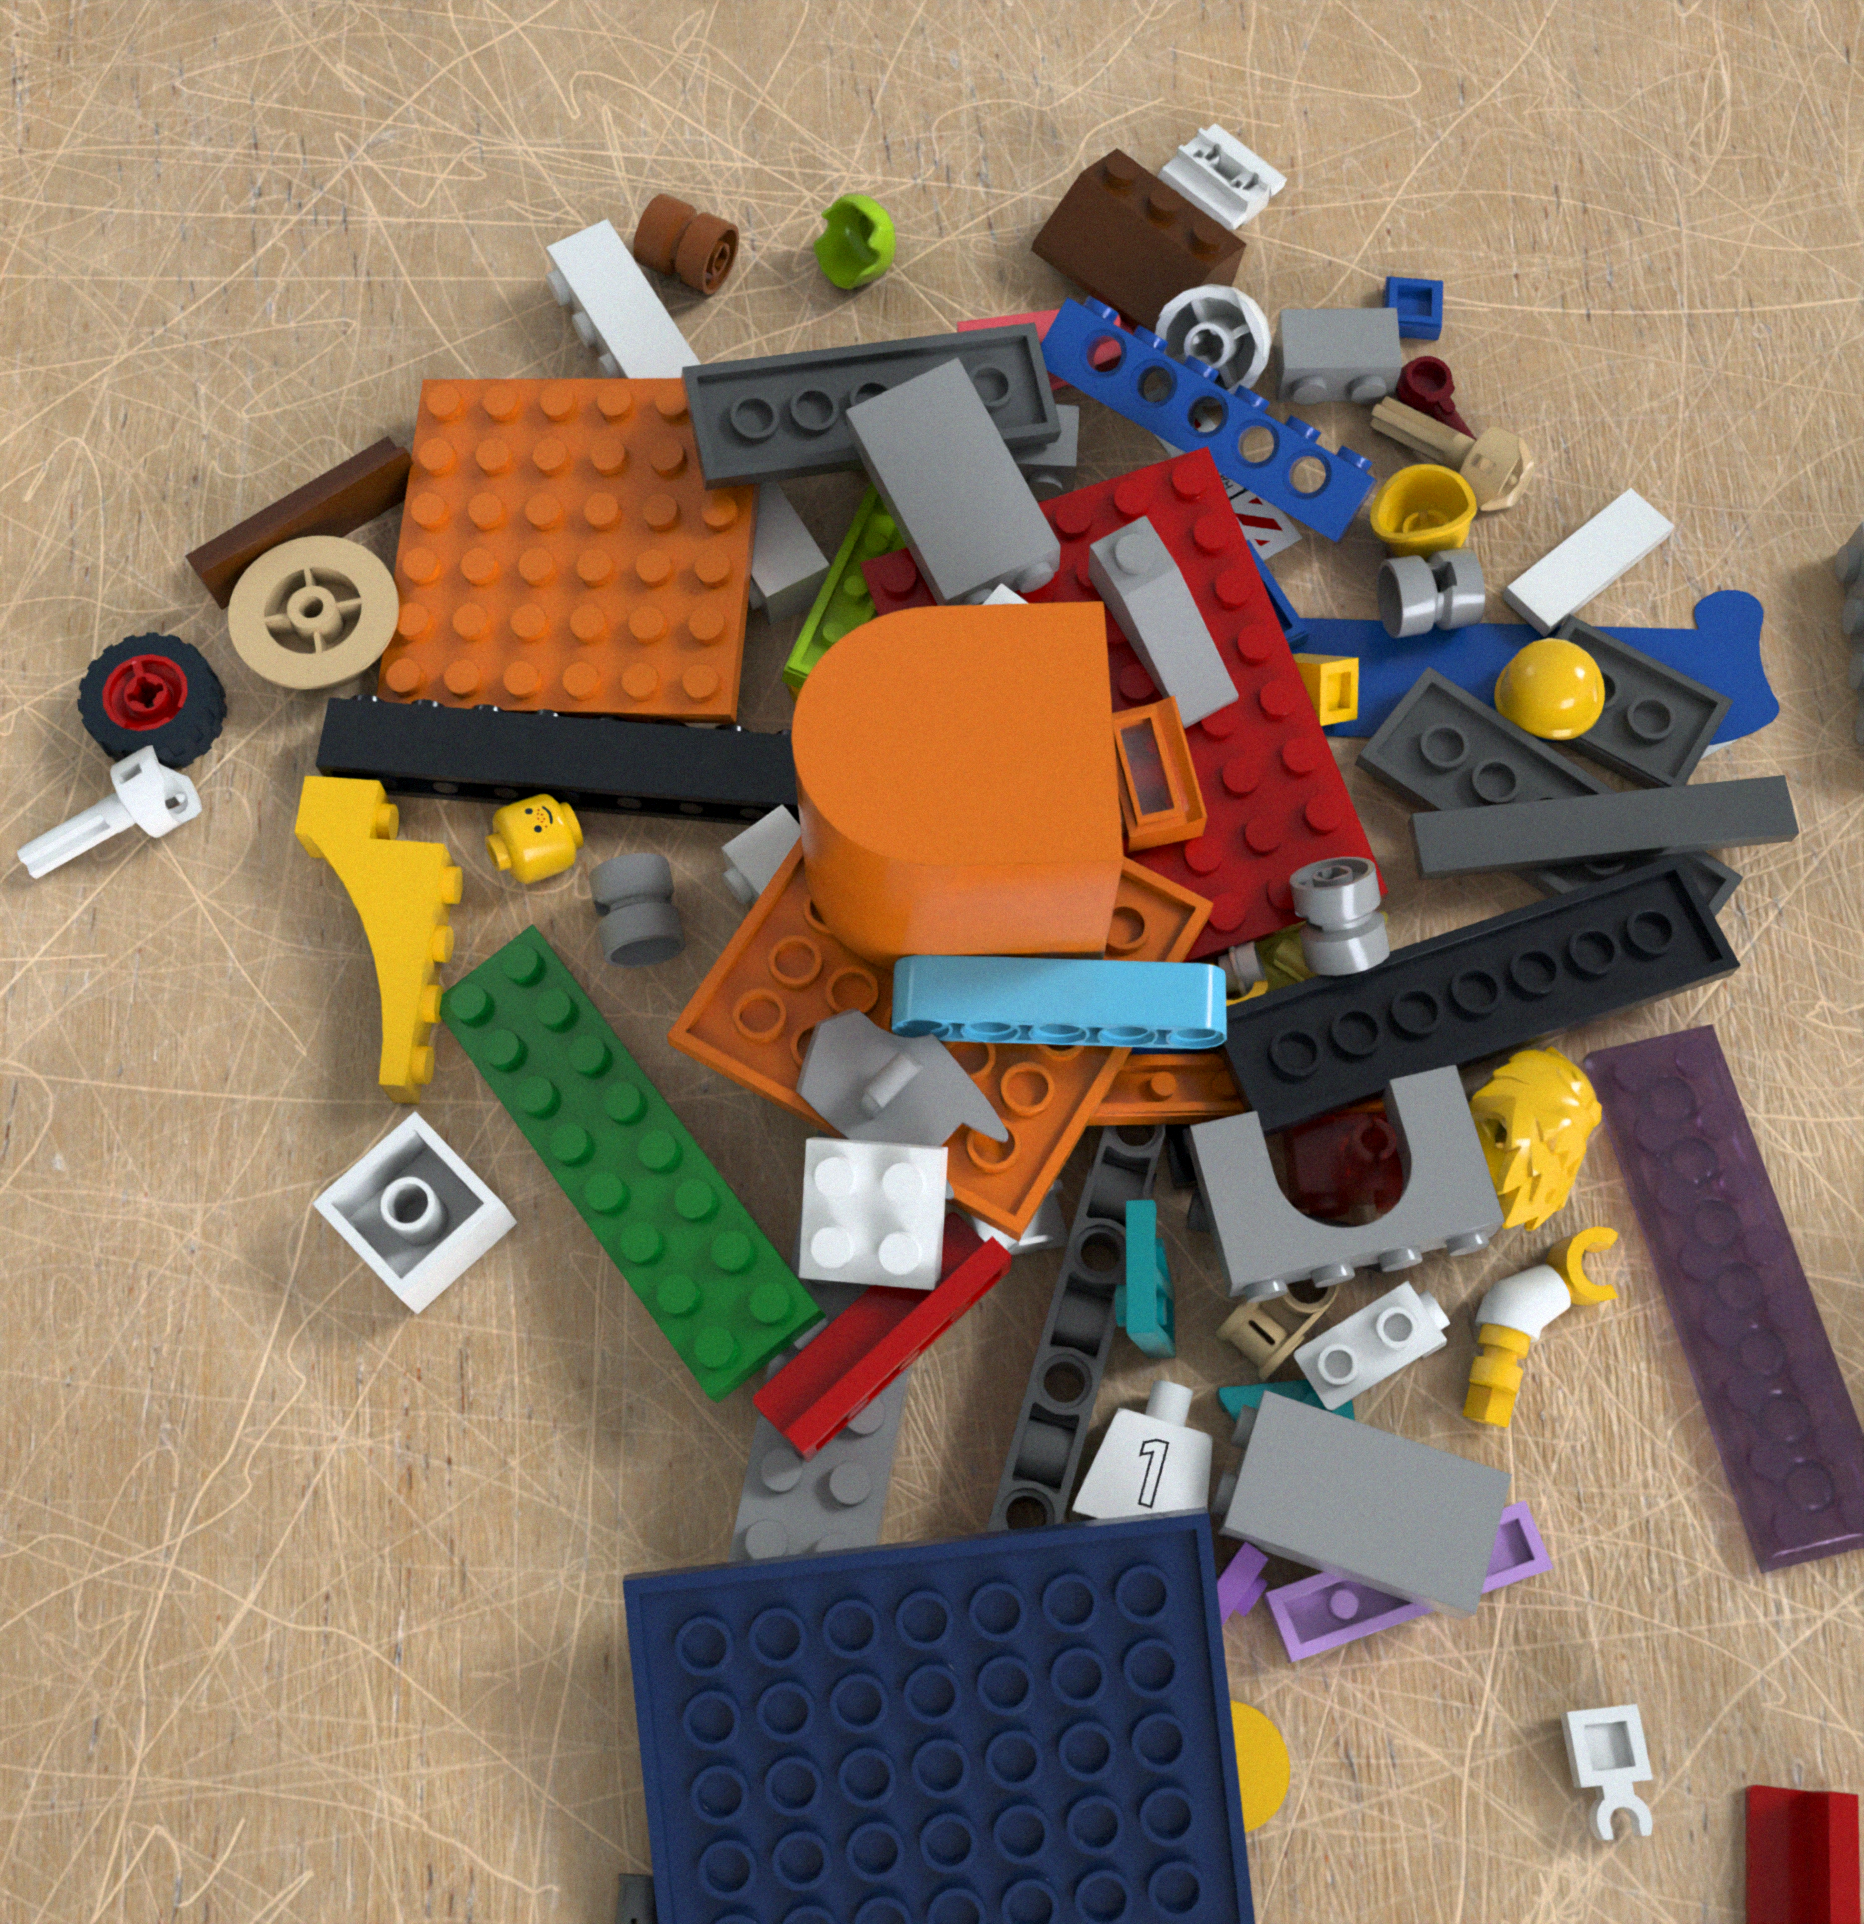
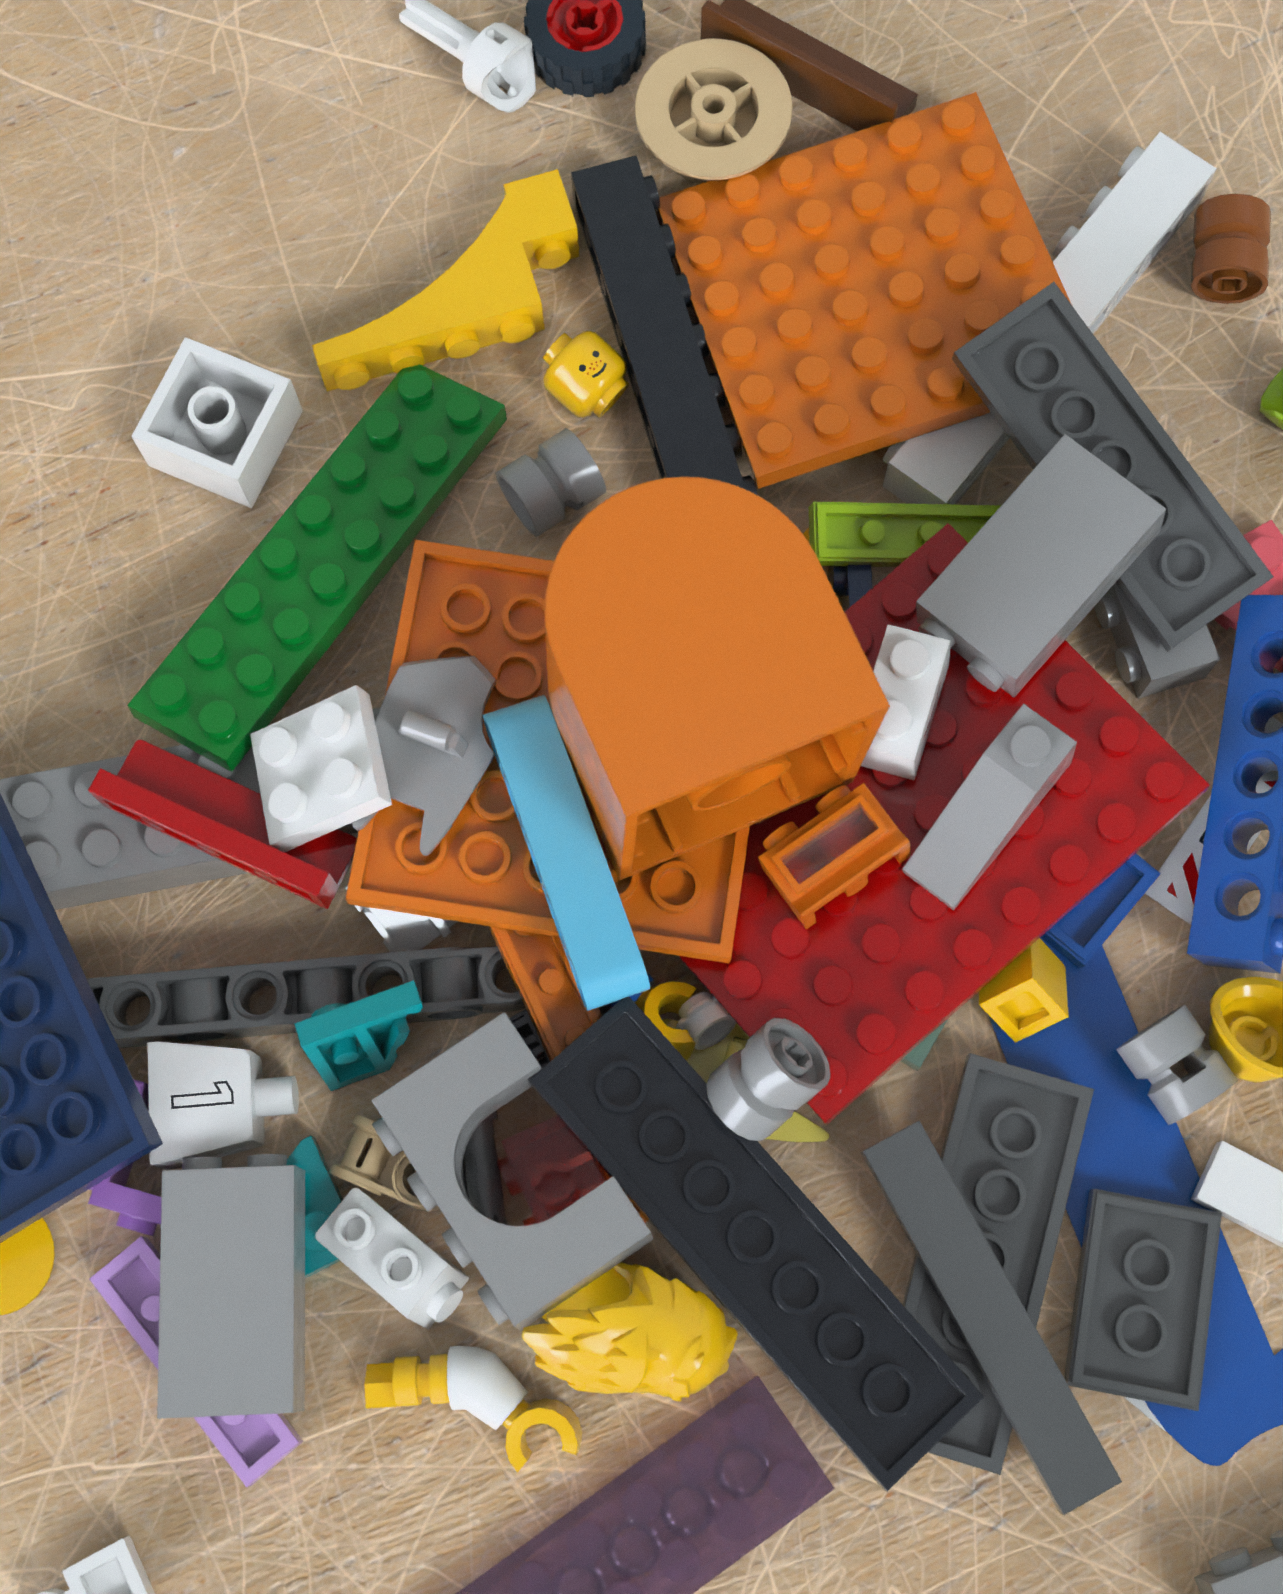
camera: 70 degrees right, 5 degrees up
(1551, 690) = (1123, 1220): yellow helmet -> none

